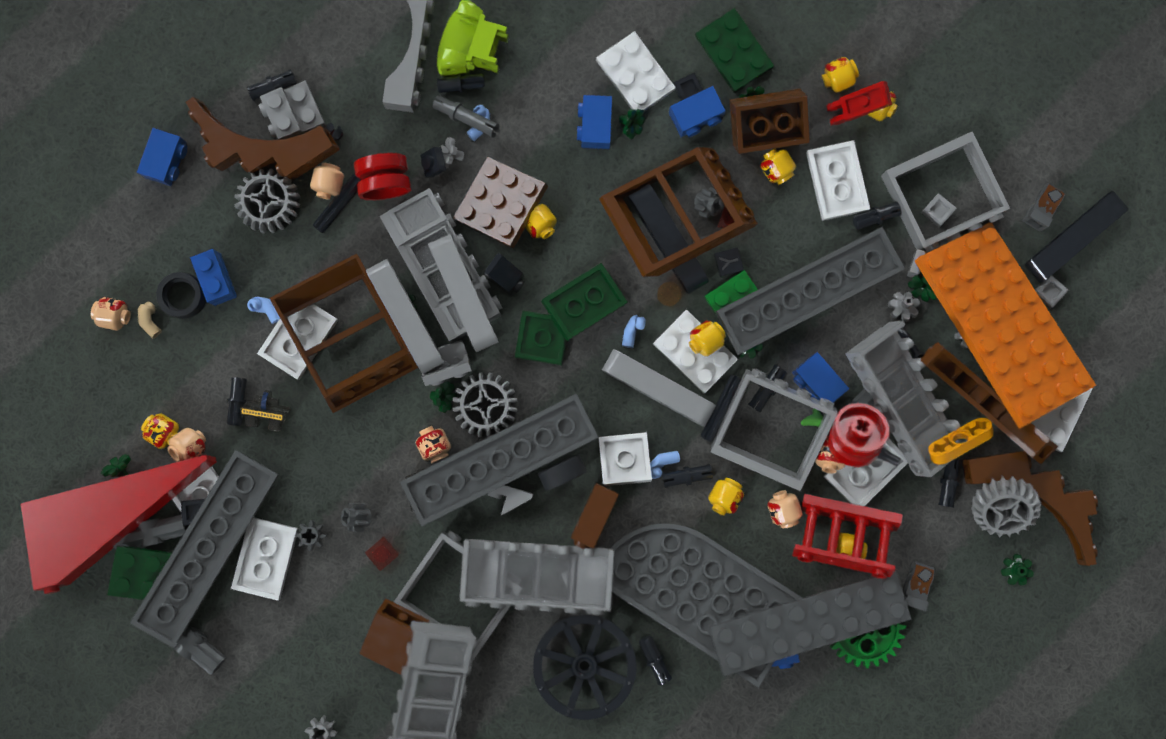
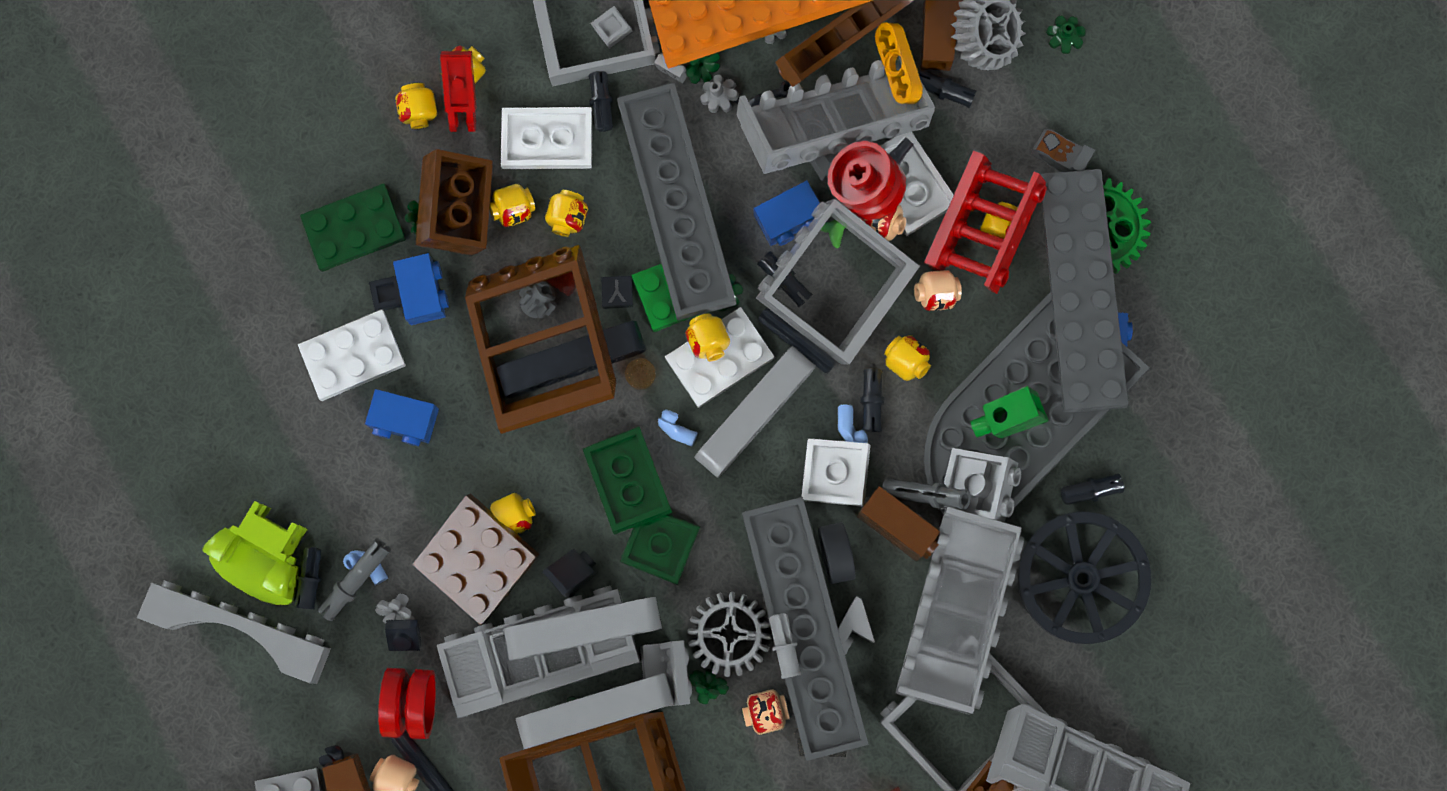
camera: 70 degrees left, 5 degrees down
(481, 447) = (784, 645): none -> light grey axle
(622, 554) = (954, 497): none -> dark grey pin
(632, 122) = (413, 372): dark green plant -> none
(637, 572) = (988, 481): none -> light grey plate
(701, 593) = (1023, 412): none -> green torso
(781, 209) = (566, 213): none -> yellow head

